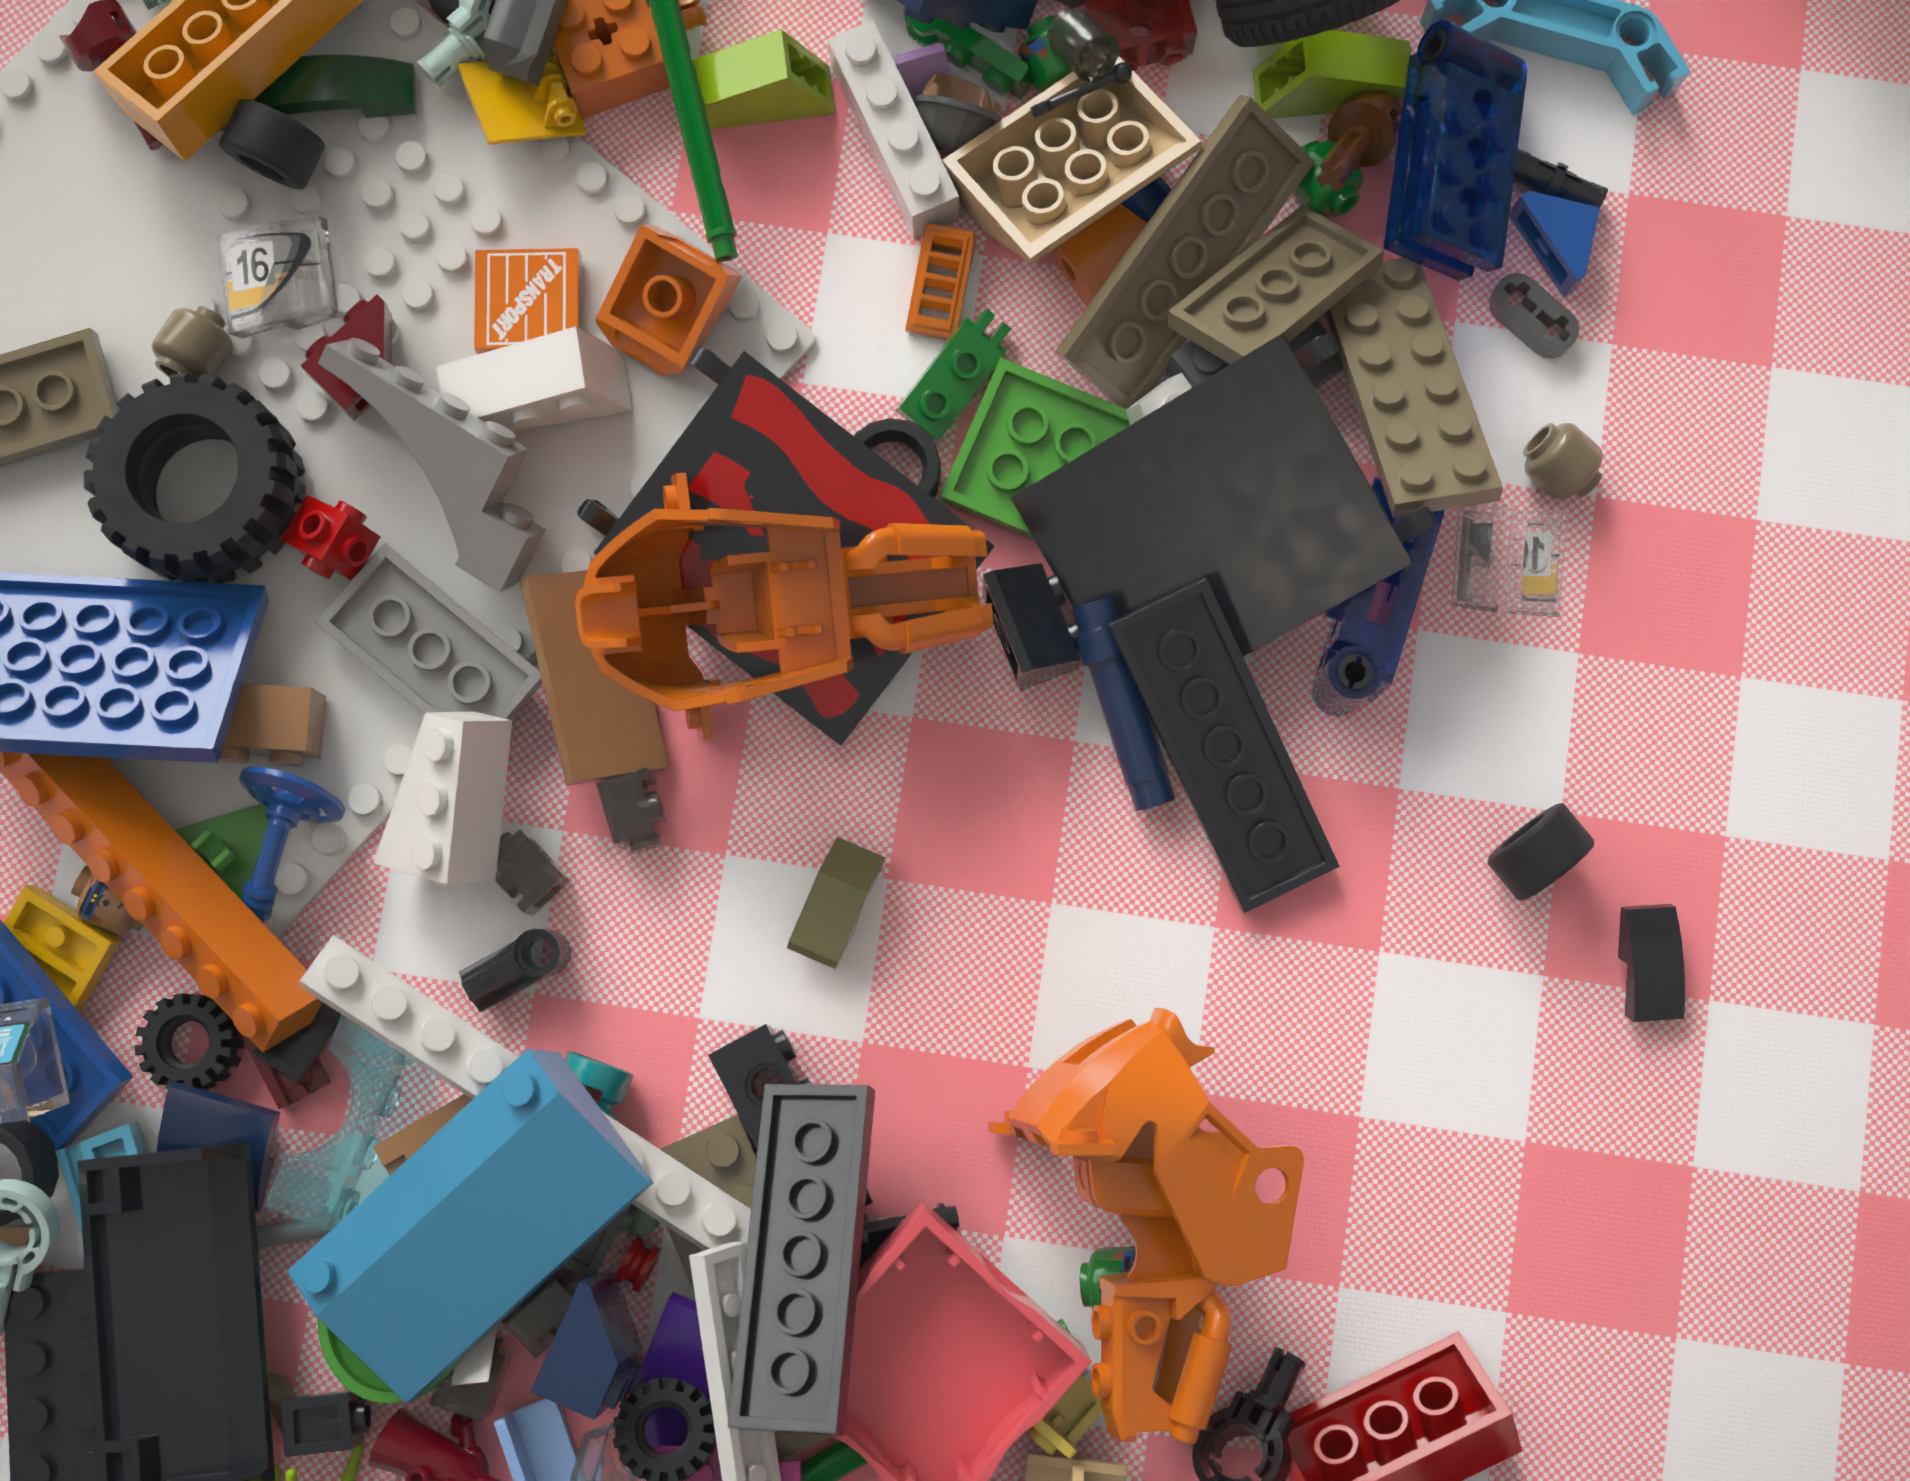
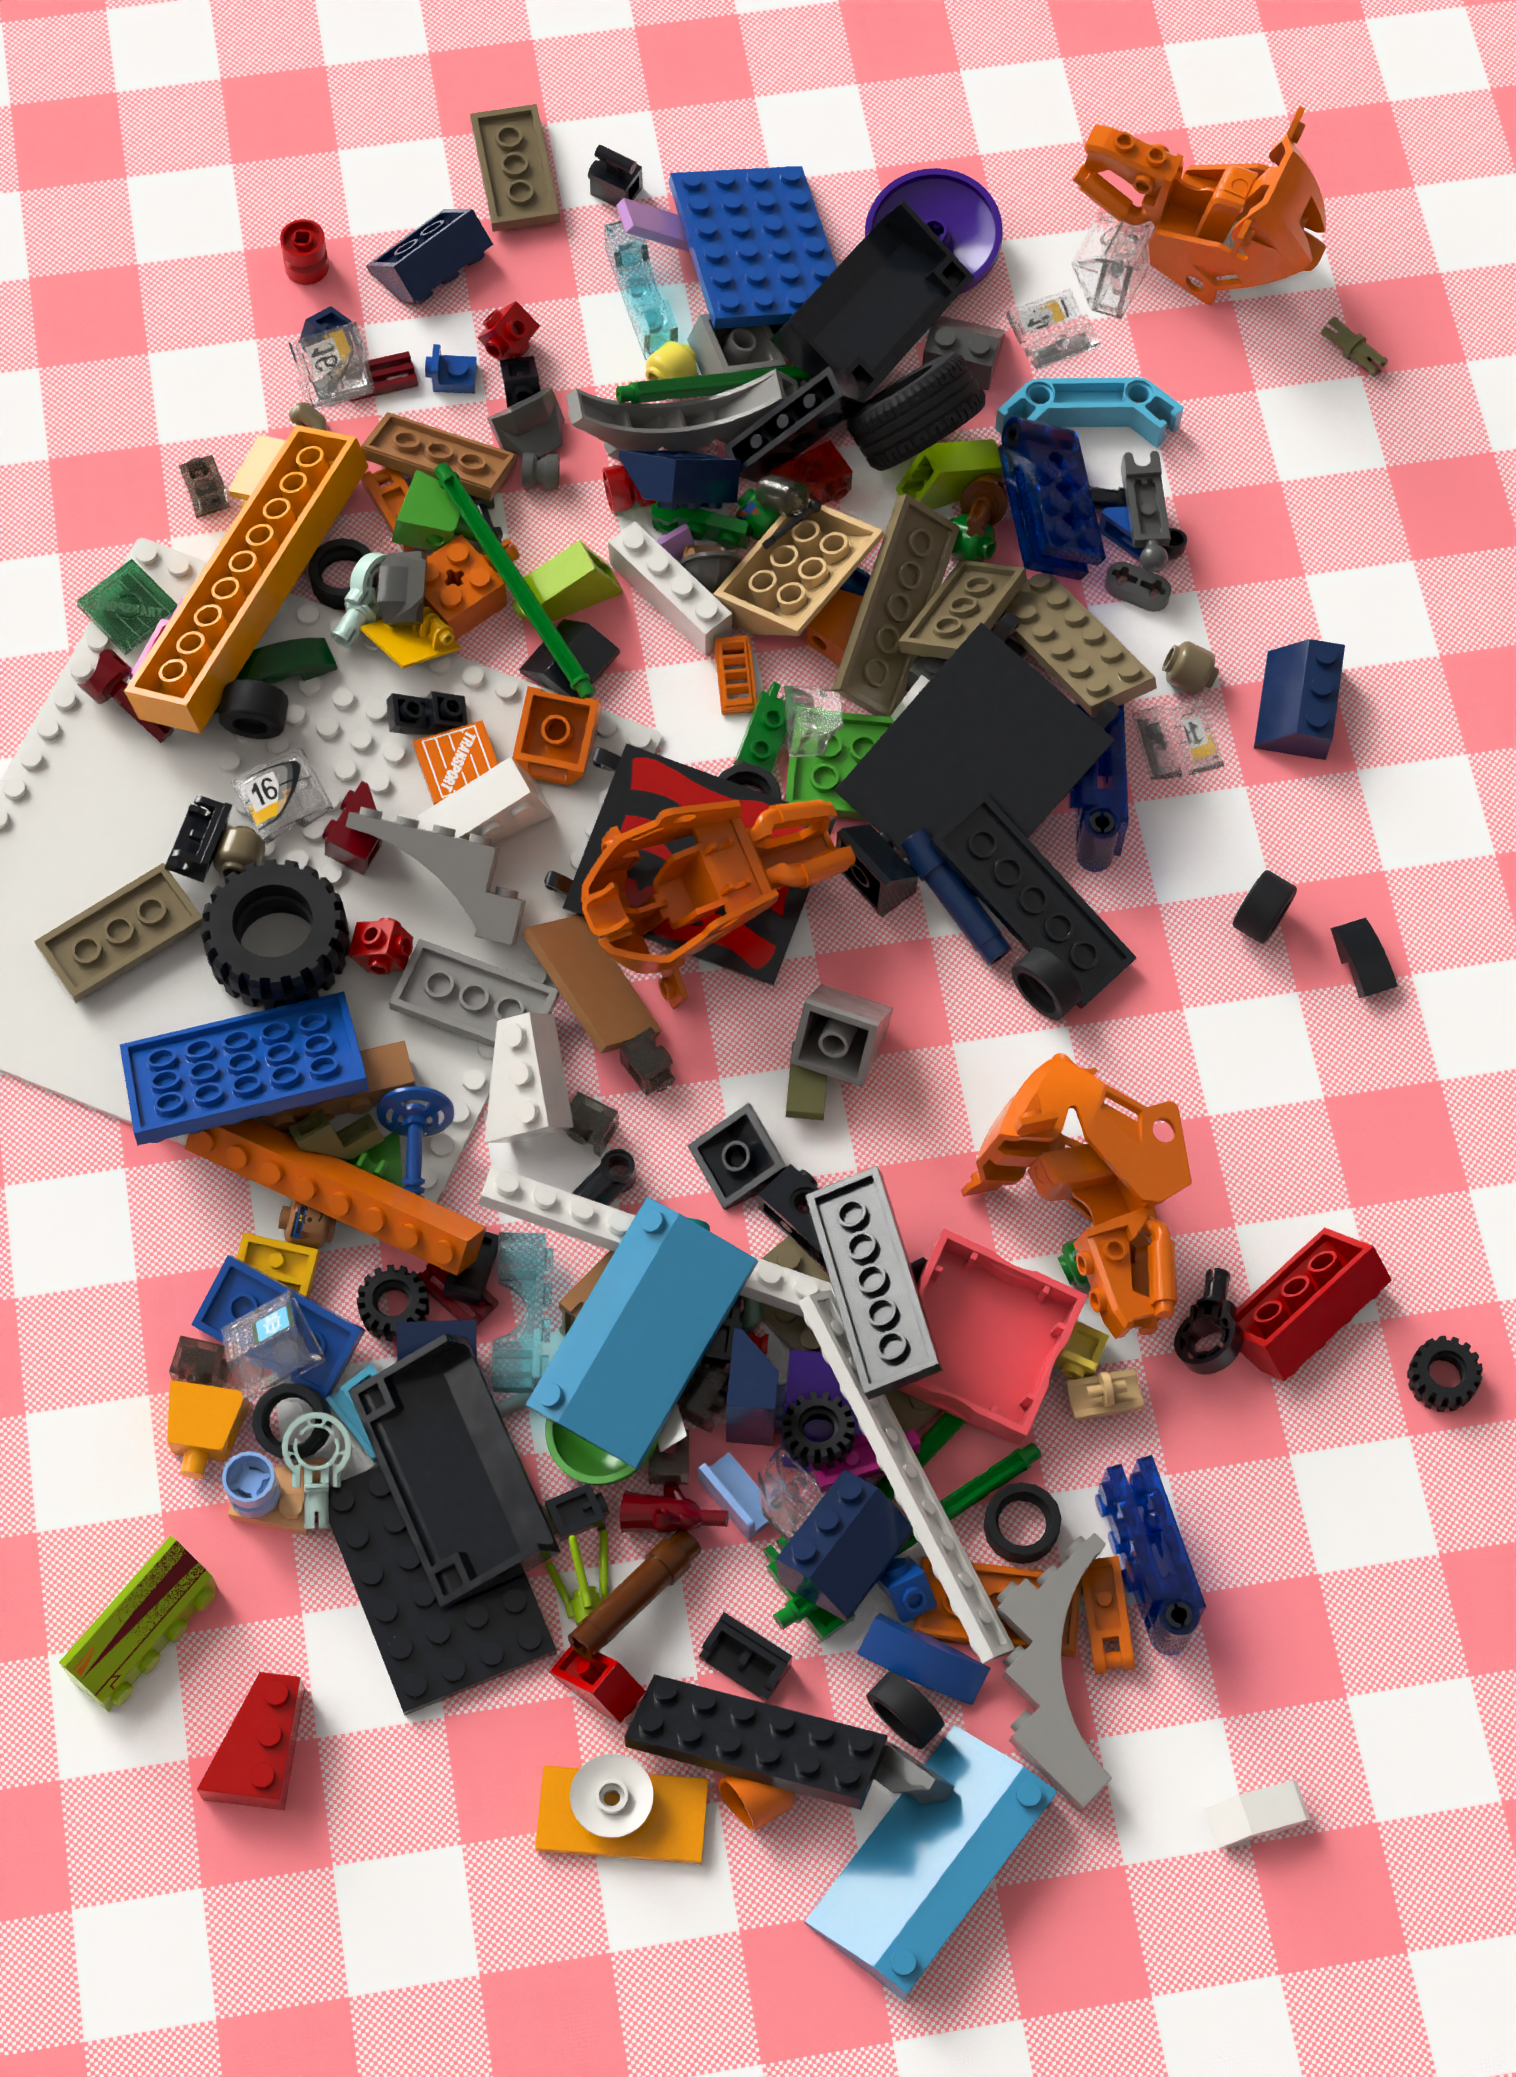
camera: 20 degrees left, 15 degrees down
(144, 308) = (198, 838): none -> black hinge
(168, 794) = (318, 1136): none -> olive slope
(508, 217) = (426, 715): none -> black slope
(705, 982) = (737, 1157): none -> black slope
(751, 186) = (588, 646): none -> black slope
(895, 859) = (840, 1034): none -> light grey slope
(1014, 382) = (810, 719): none -> clear slope
(1202, 871) = (1046, 983): none -> black tyre
(1584, 215) = (1147, 510): none -> dark grey plate
(1605, 267) = (1177, 544): none -> black hinge
(1700, 553) = (1300, 698): none -> dark blue slope

